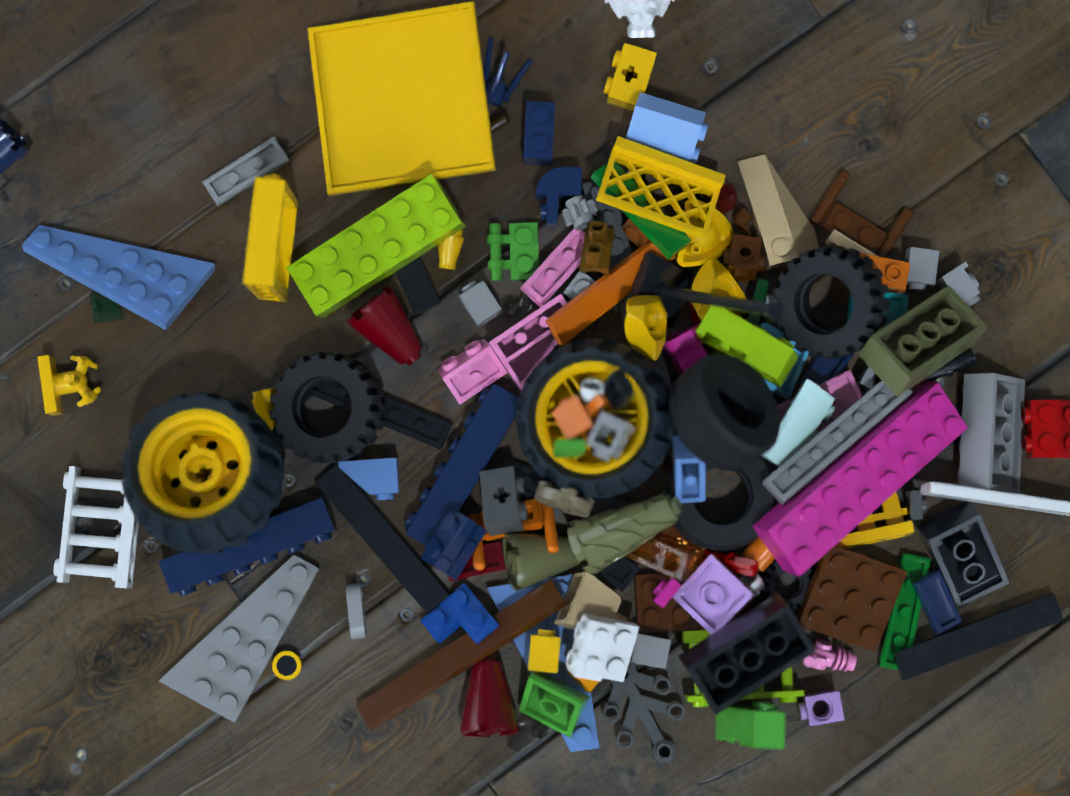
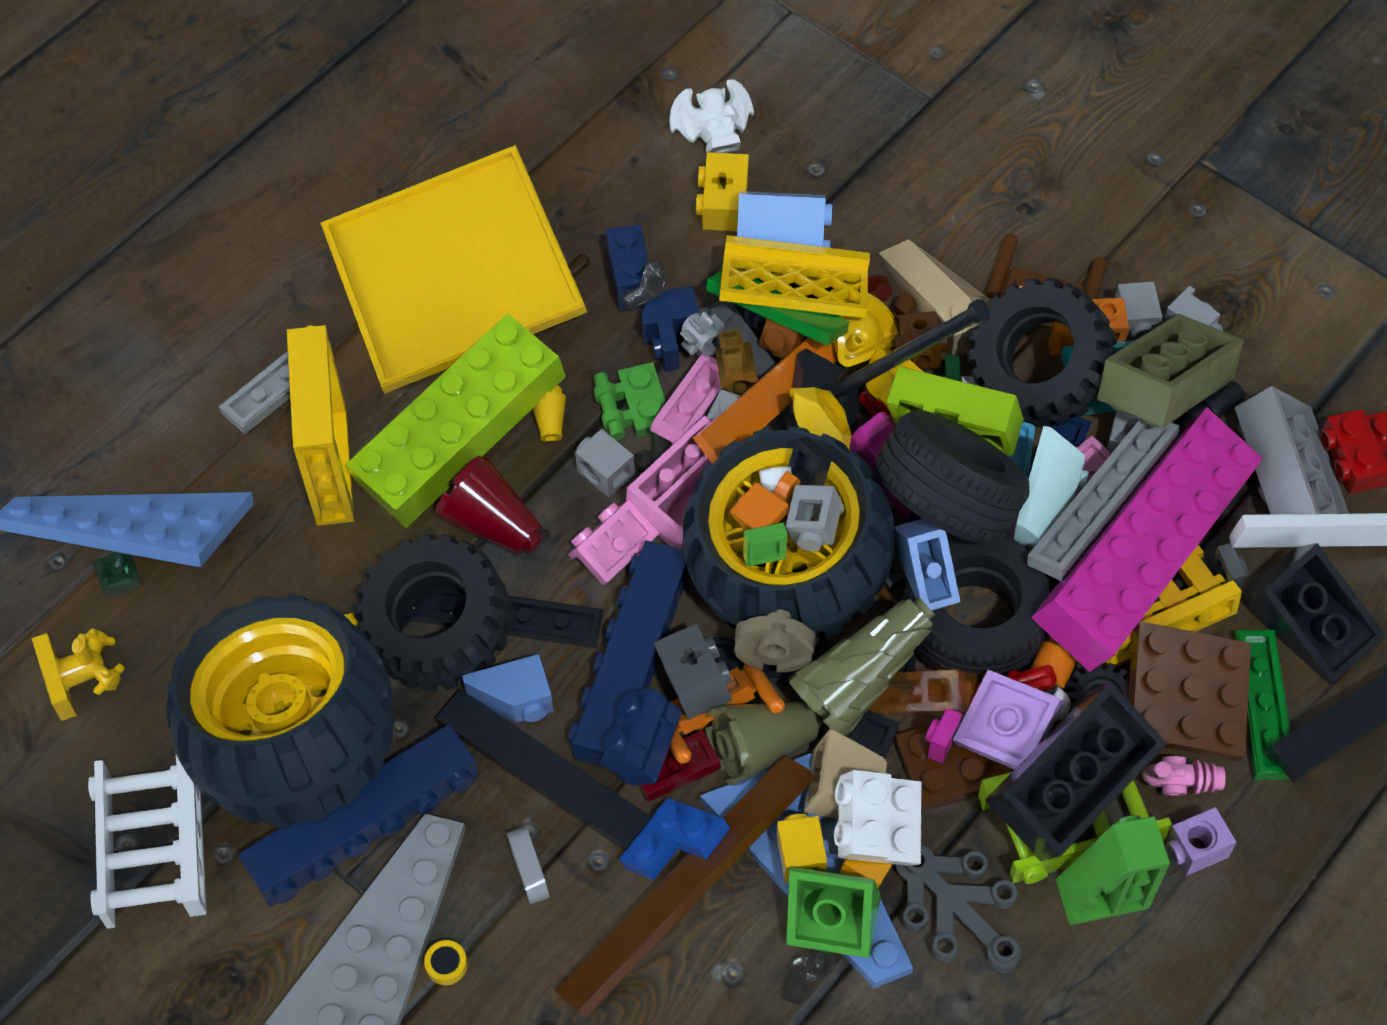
camera: 10 degrees left, 25 degrees down
(417, 287) = (519, 465): black tile -> none
(488, 702) = (743, 942): dark red cone -> none
(496, 88) = (565, 232): dark blue plant -> none
(549, 163) = (650, 285): none -> clear smoke arm
(650, 651) = (946, 822): light grey brick -> none
(937, 602) = (1302, 677): dark blue tile -> none

